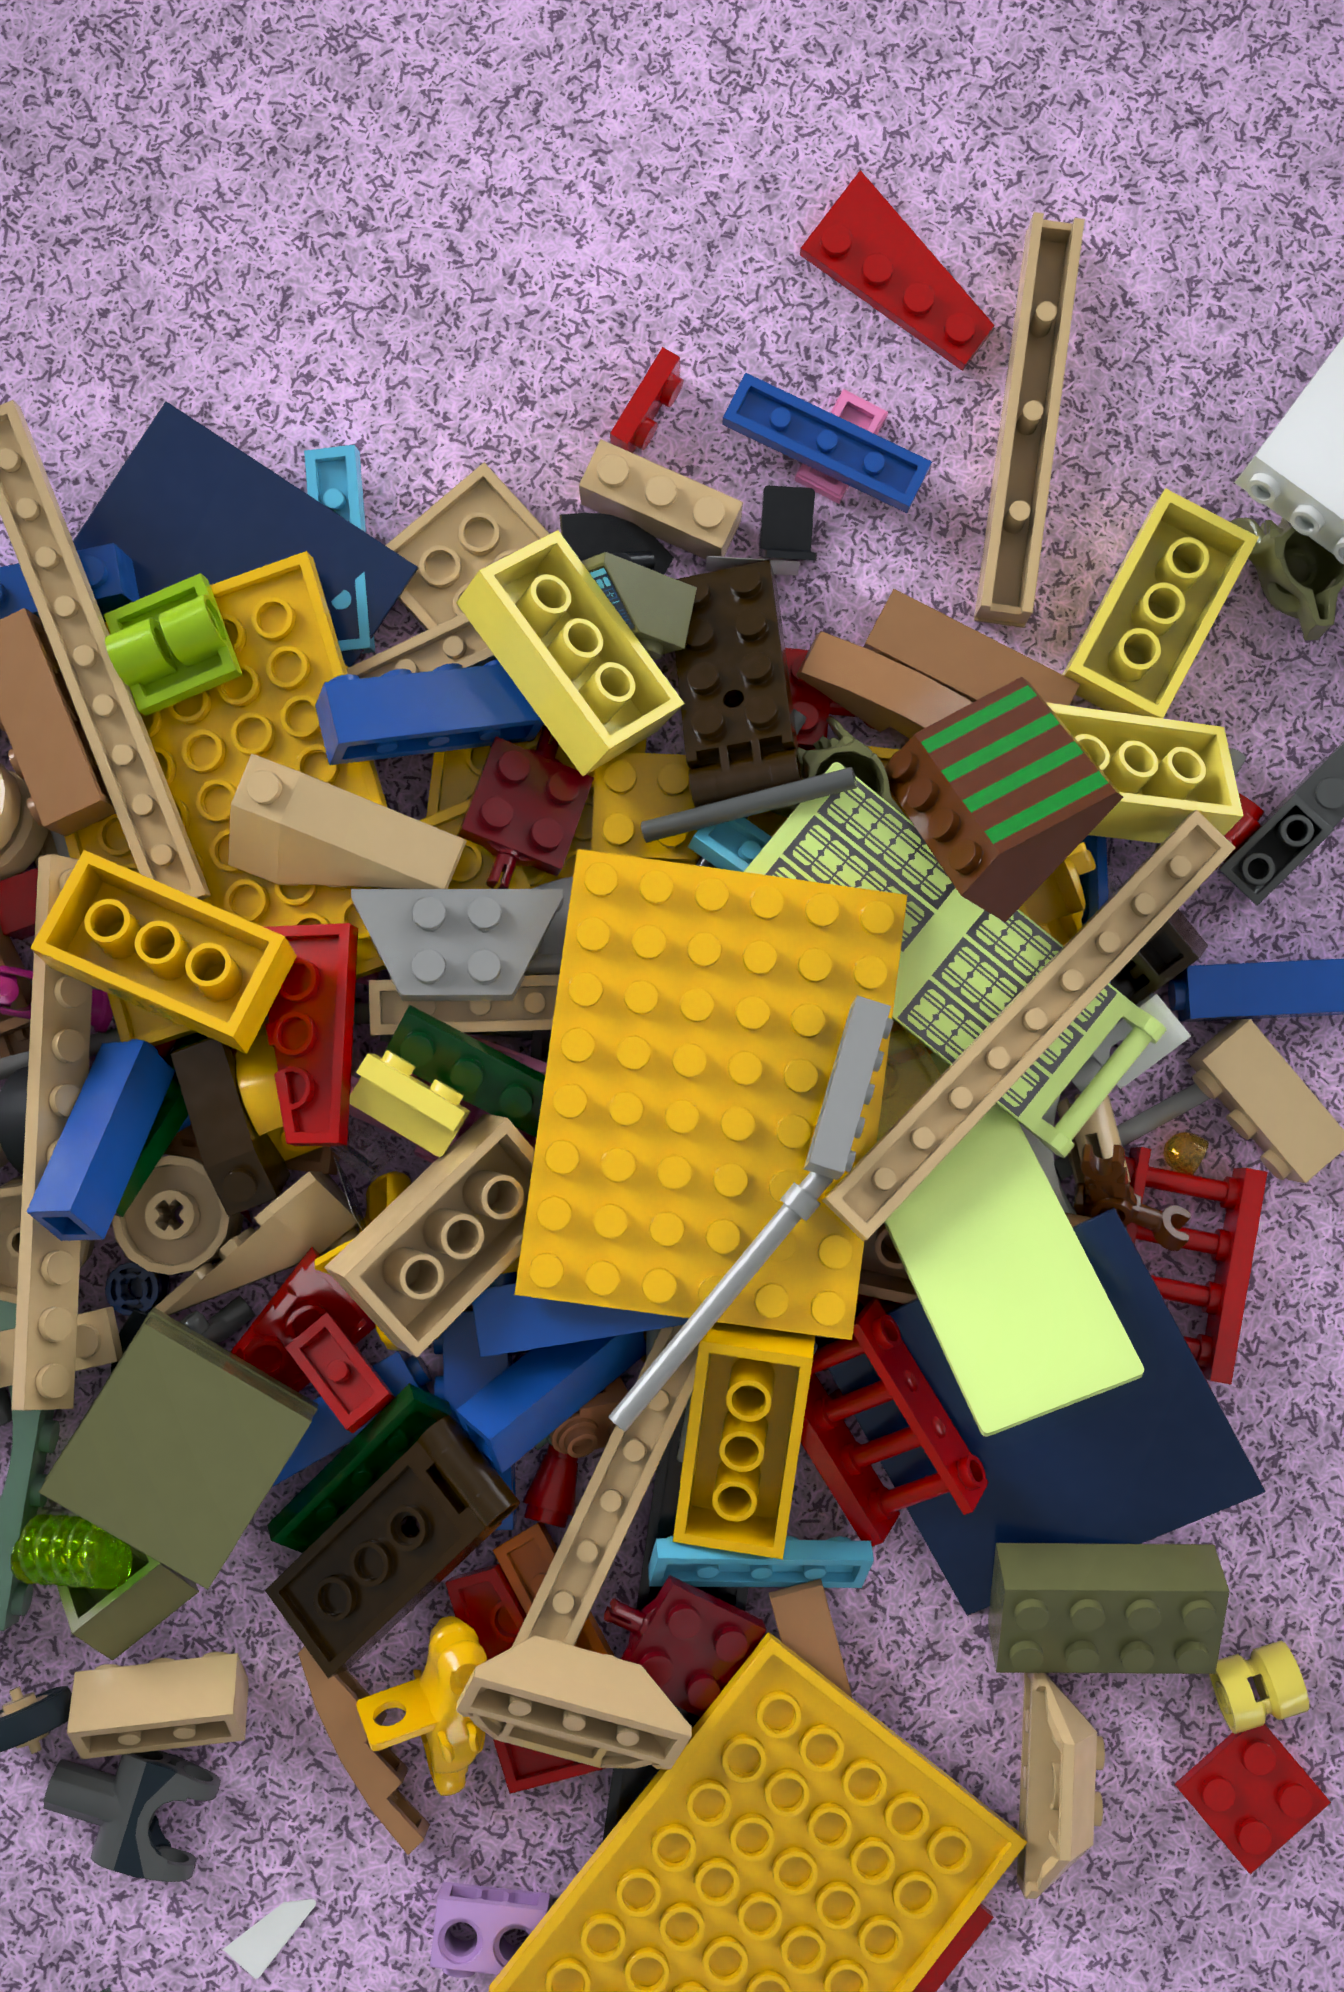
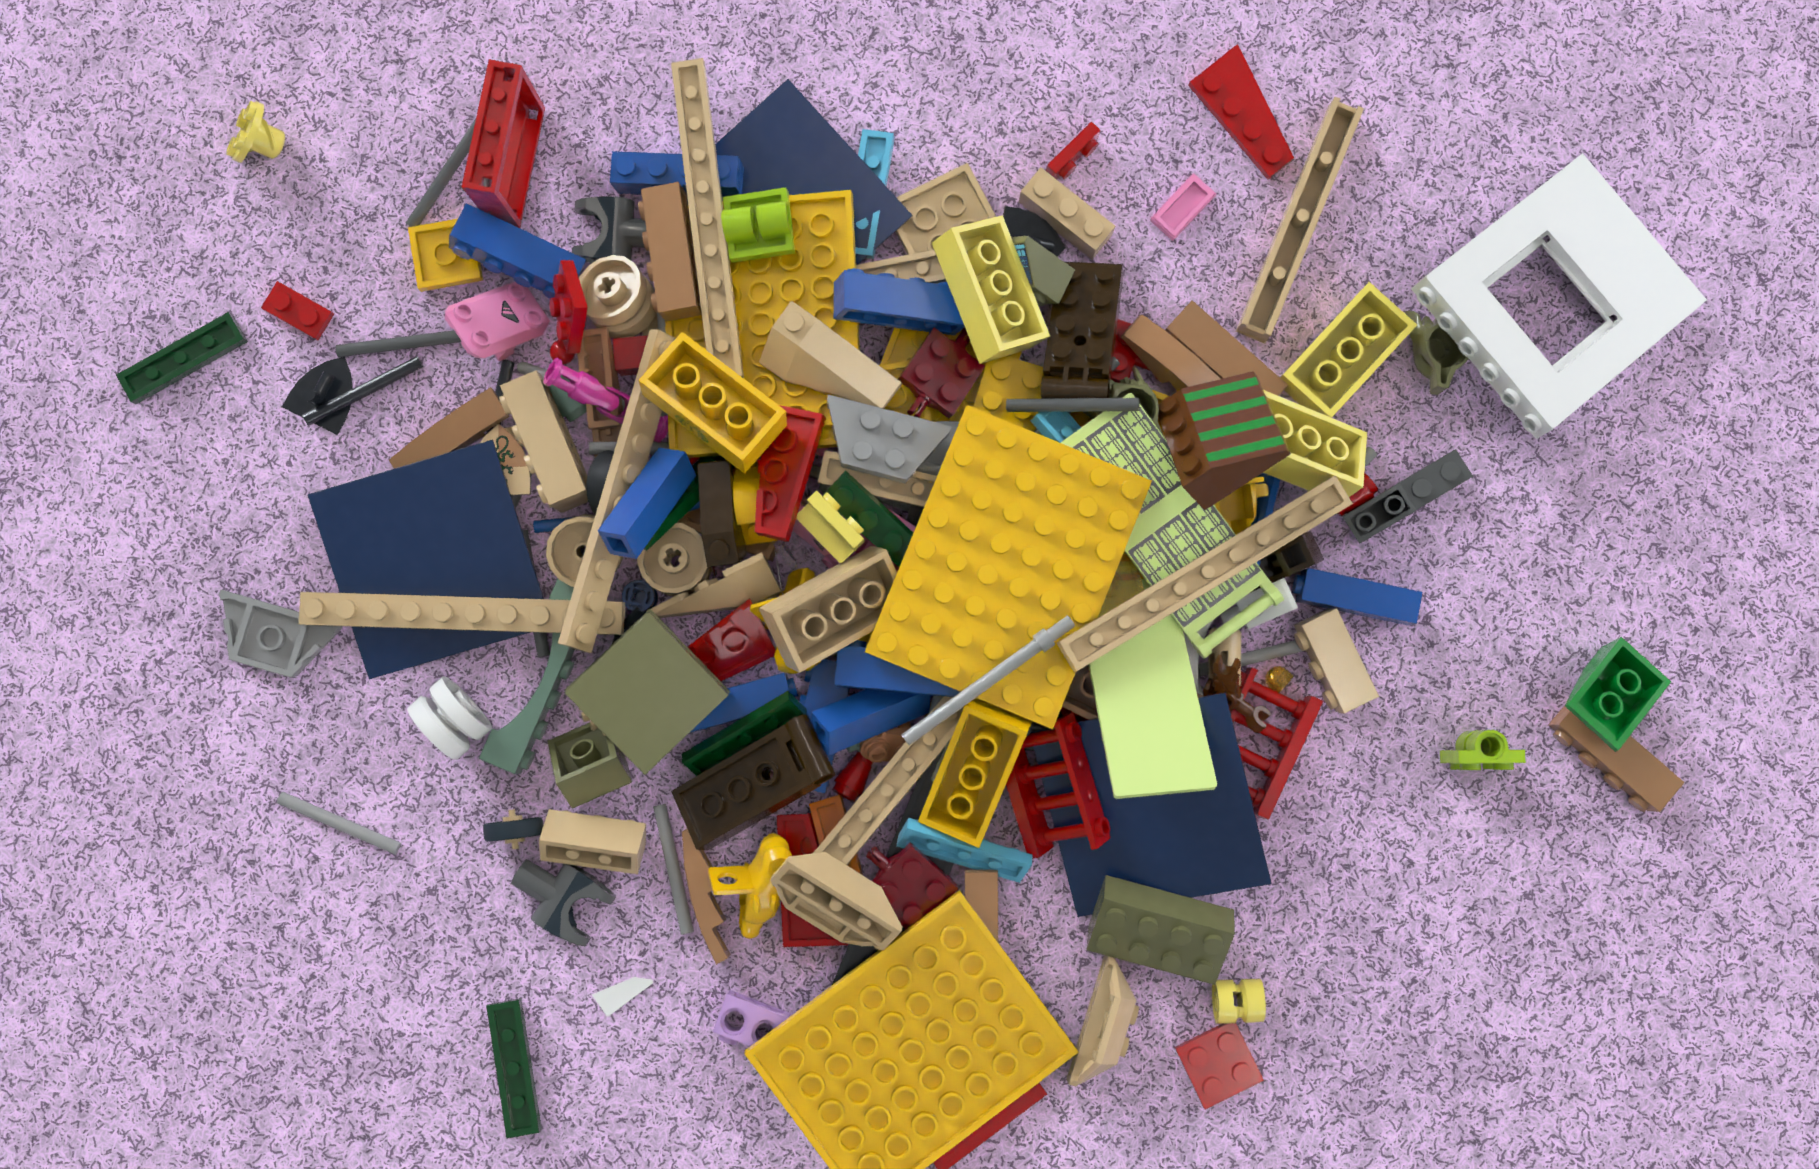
camera: 15 degrees right, 0 degrees up
(70, 1553) = (566, 738): clear neon green piece -> none
(223, 1323) = (686, 630): dark grey arm -> none
(302, 1711) = (673, 869): none -> light grey bar
(340, 1372) = (748, 675): red plate -> none
(779, 566) = (1096, 259): white sticker -> none
(787, 523) = (1138, 245): black bracket -> none
(826, 442) = (1174, 203): blue plate -> none
(849, 1088) = (1089, 582): light grey piece -> none

